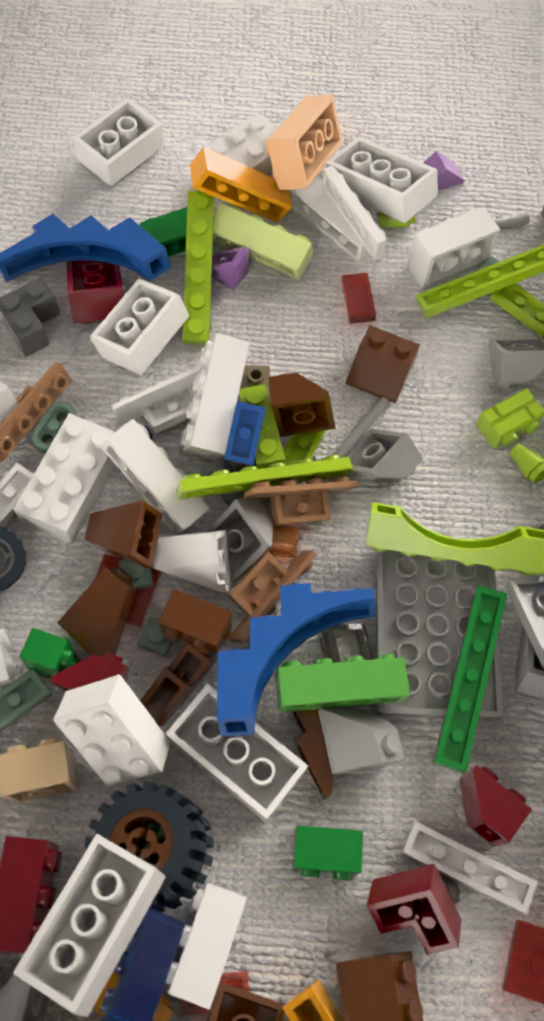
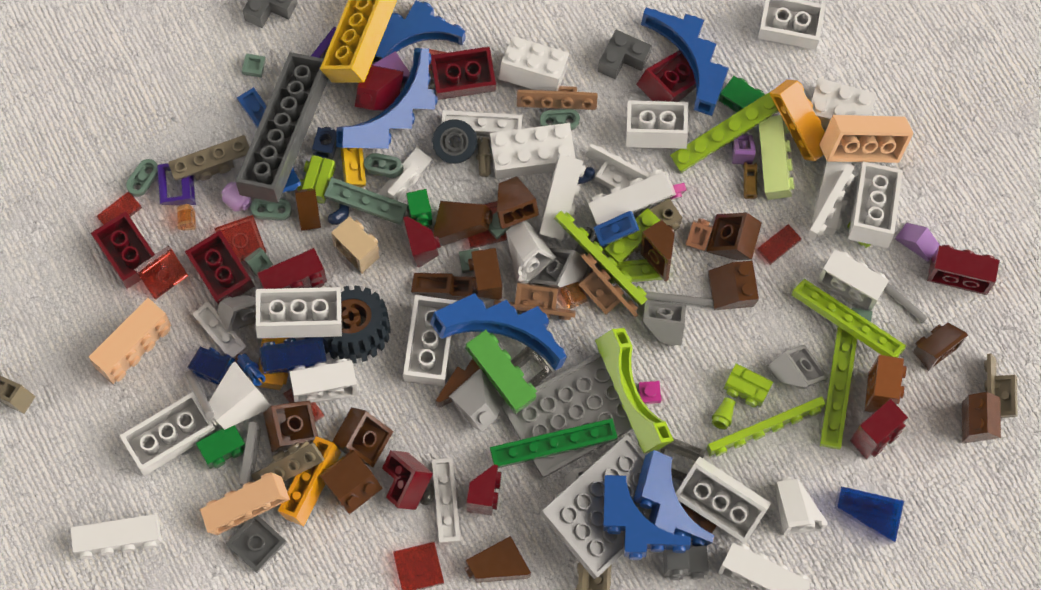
camera: 60 degrees right, 5 degrees up
(37, 538) = (484, 156): none -> dark tan axle
(112, 731) = (398, 266): white brick -> none
(268, 283) = (750, 182): none -> pearl gold bar
(297, 361) = (699, 234): none -> nougat bracket
(314, 934) = (363, 435): none -> reddish brown slope
(322, 332) = (734, 236): none -> reddish brown slope
(327, 851) = (408, 420): green brick -> none
(457, 525) = (650, 392): none -> dark pink plate
(500, 148) = (963, 269): none -> dark red brick

